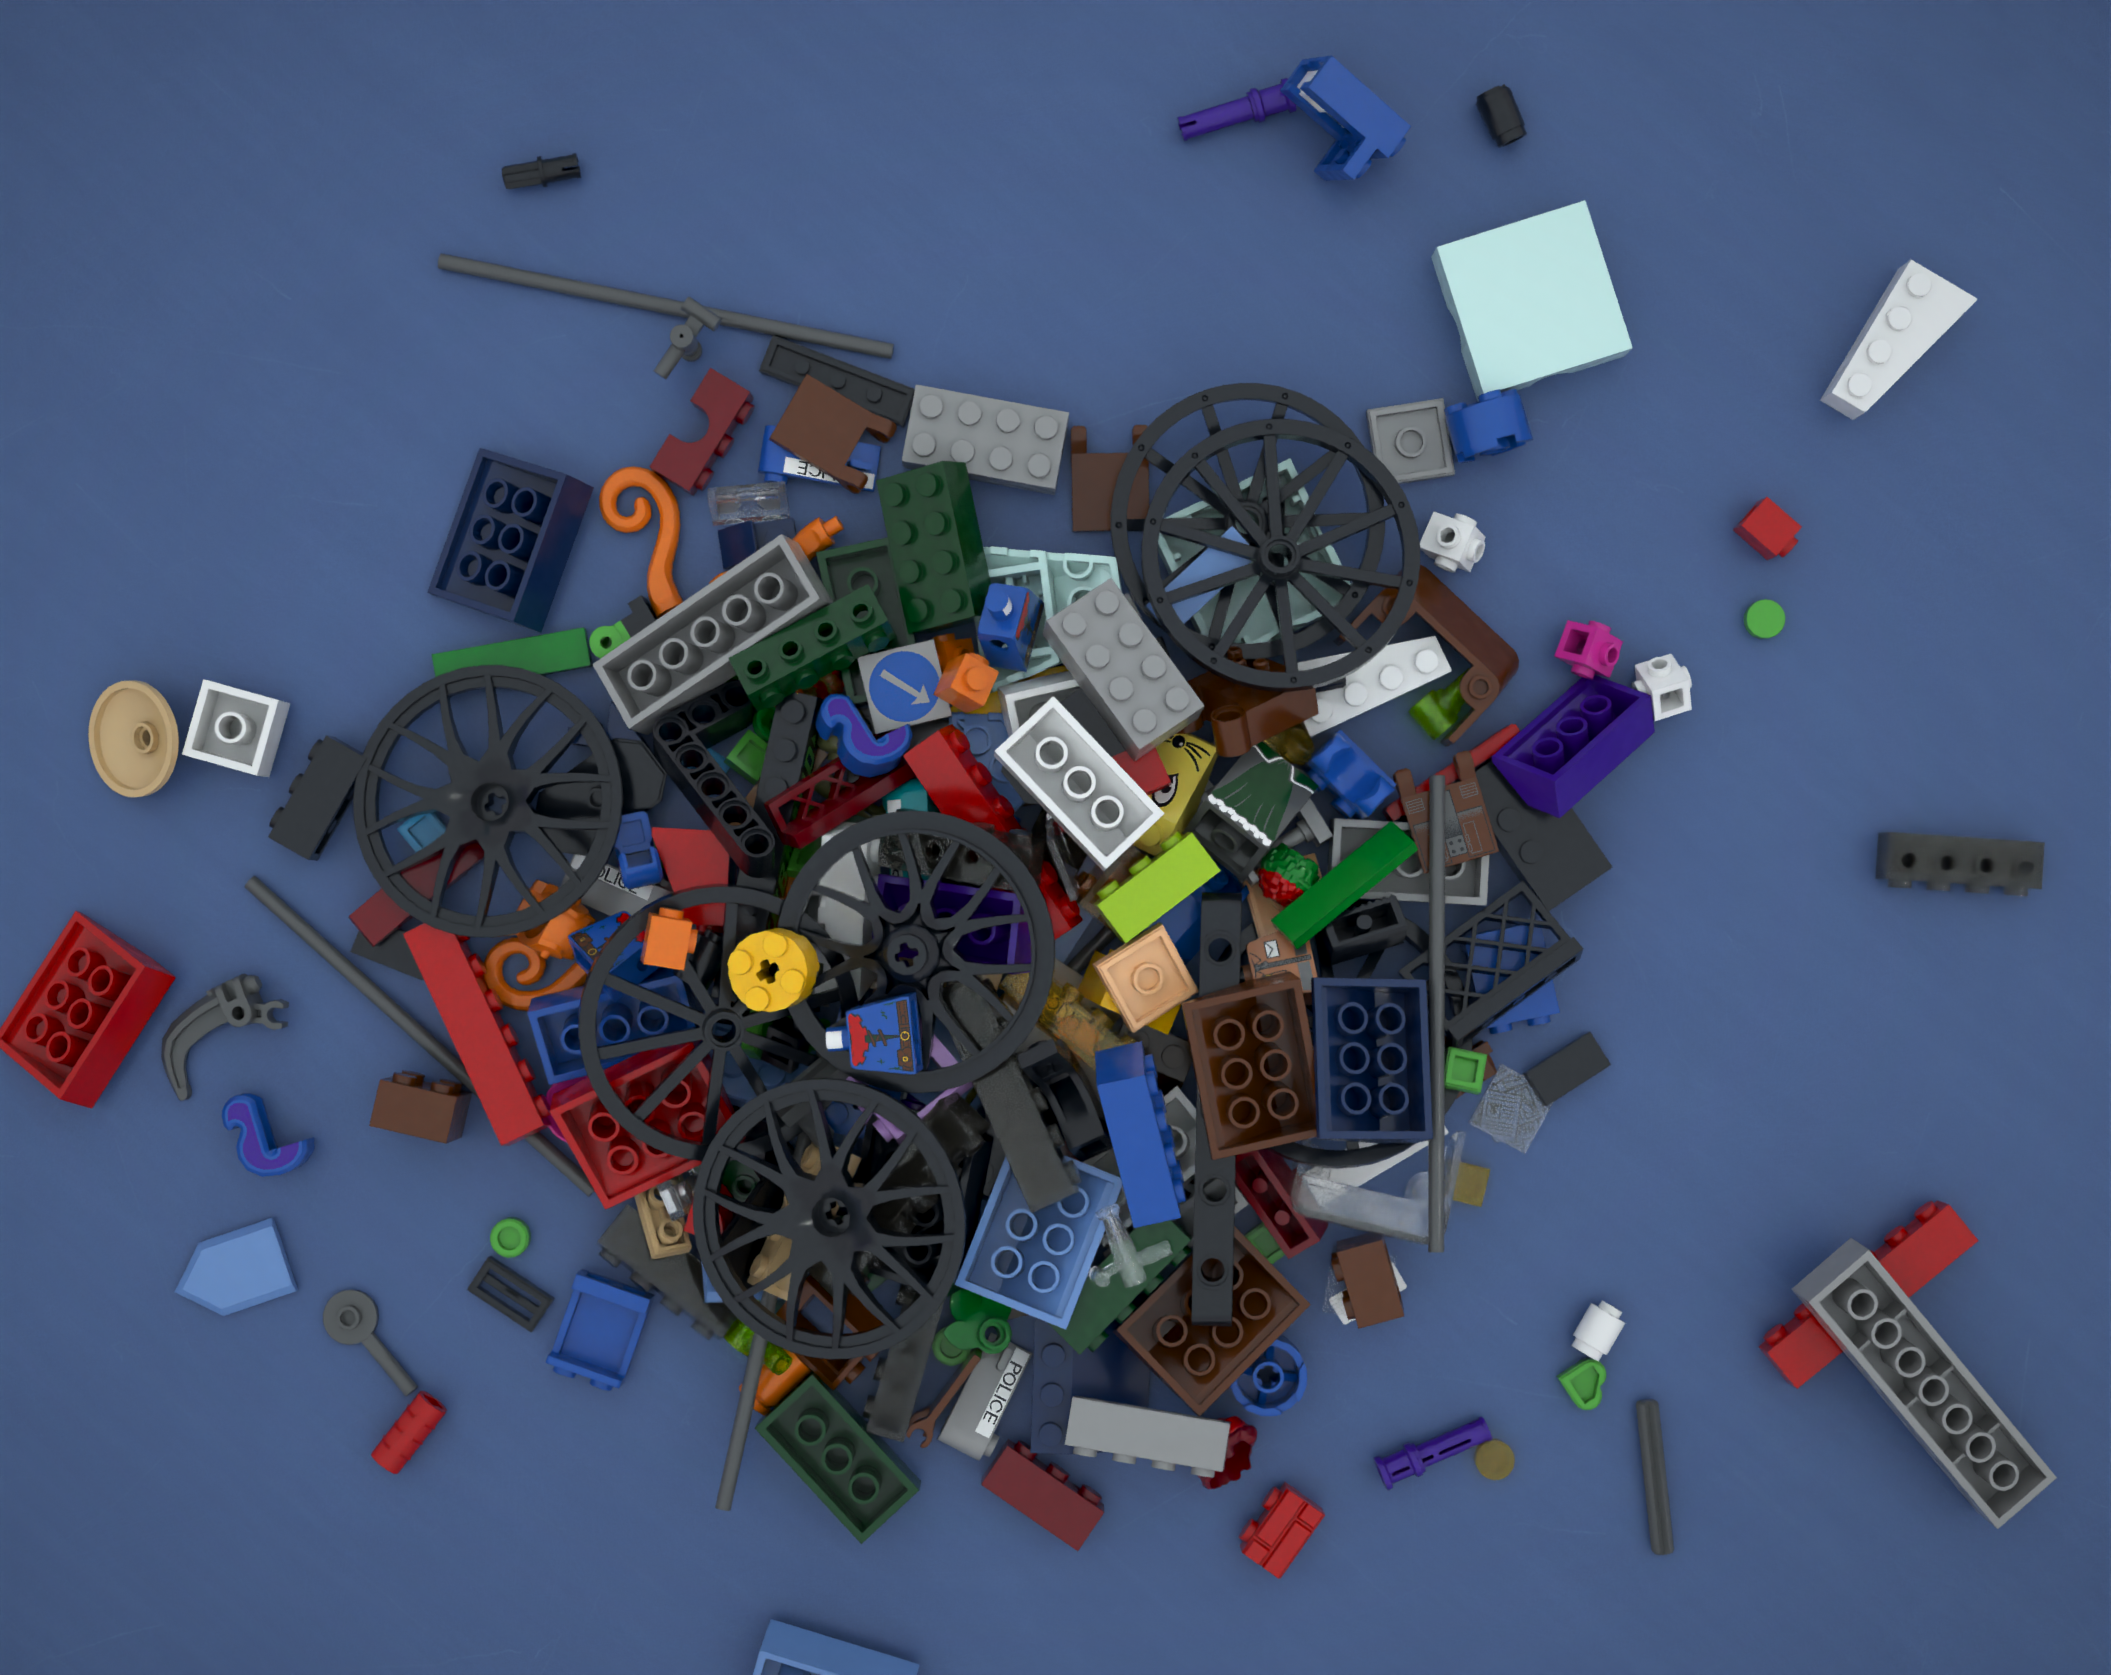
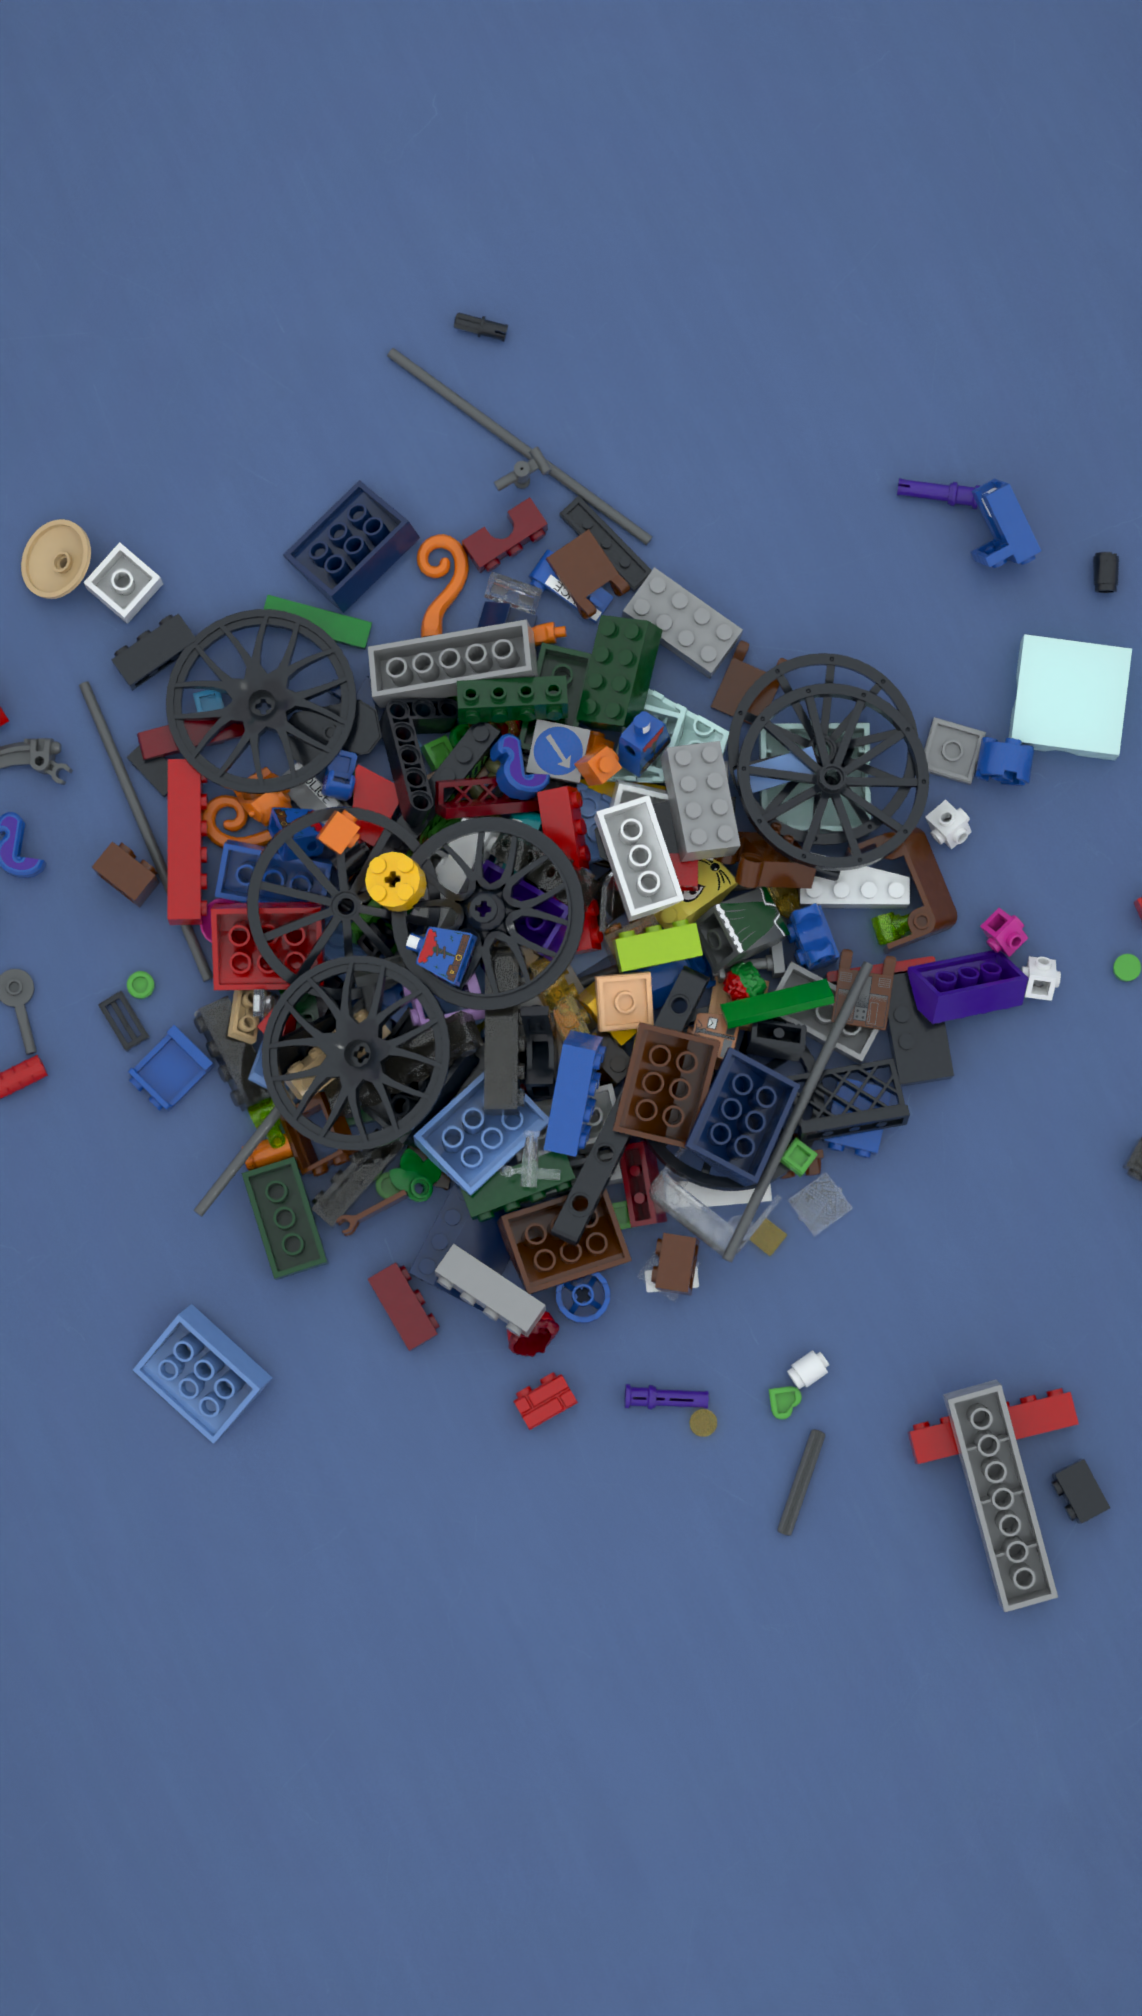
camera: 20 degrees right, 5 degrees down
(607, 638) = (384, 635): leg -> none
(983, 1401) = (392, 1229): light grey door -> none
(1567, 1069) = (866, 1194): black tile -> none
(2016, 1322) = (1080, 1492): none -> black brick

